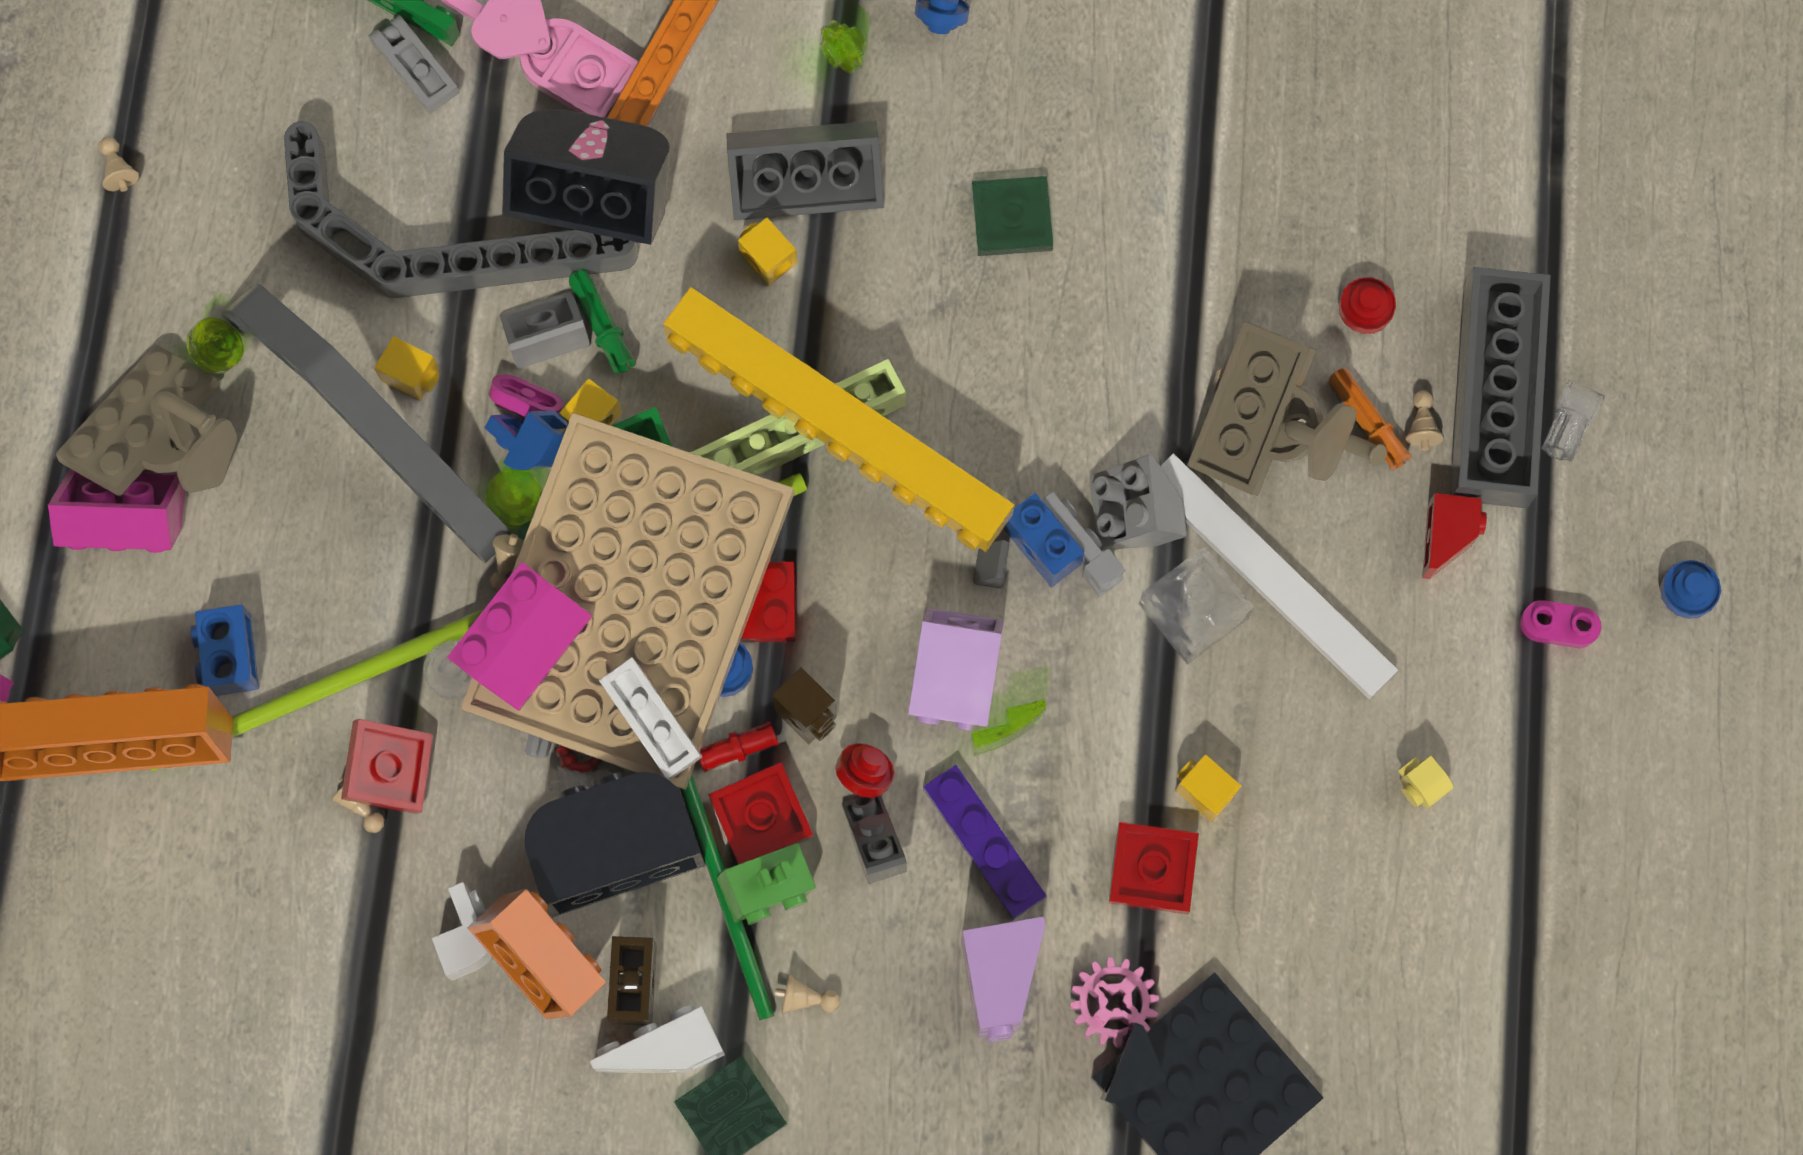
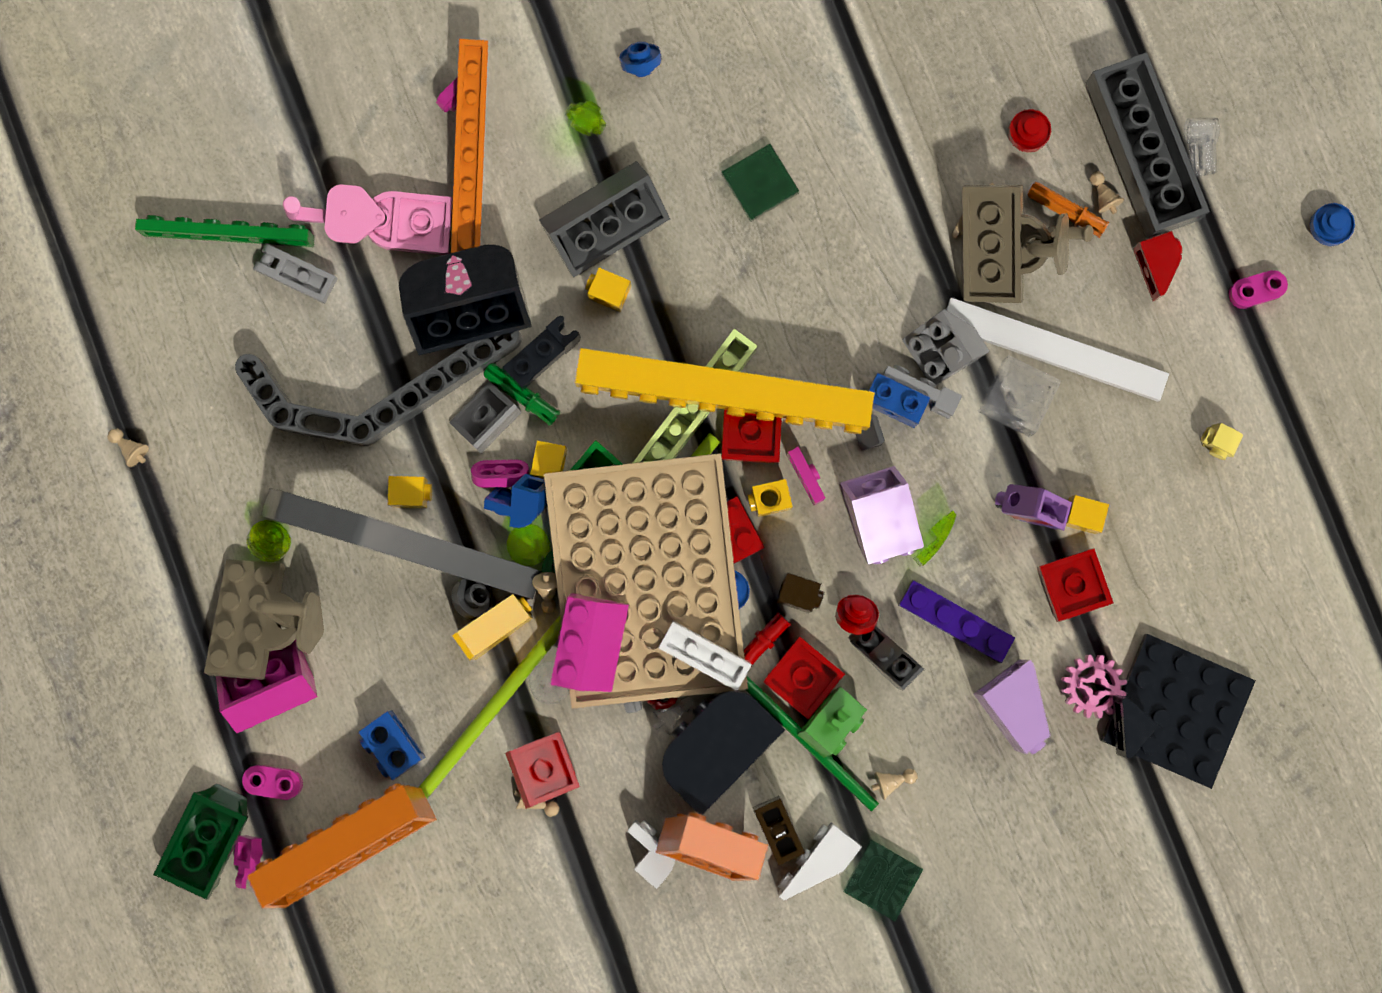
camera: 25 degrees left, 10 degrees up
(63, 625) = (271, 782): none -> dark pink plate
(414, 526) = (472, 598): none -> dark grey plate
(419, 569) = (493, 626): none -> yellow slope
(647, 284) = (541, 353): none -> black plate
(840, 597) = (779, 488): none -> yellow brick
(846, 501) = (751, 439): none -> red plate
(891, 576) = (807, 475): none -> dark pink plate
(1138, 728) = (1027, 502): none -> medium lavender torso

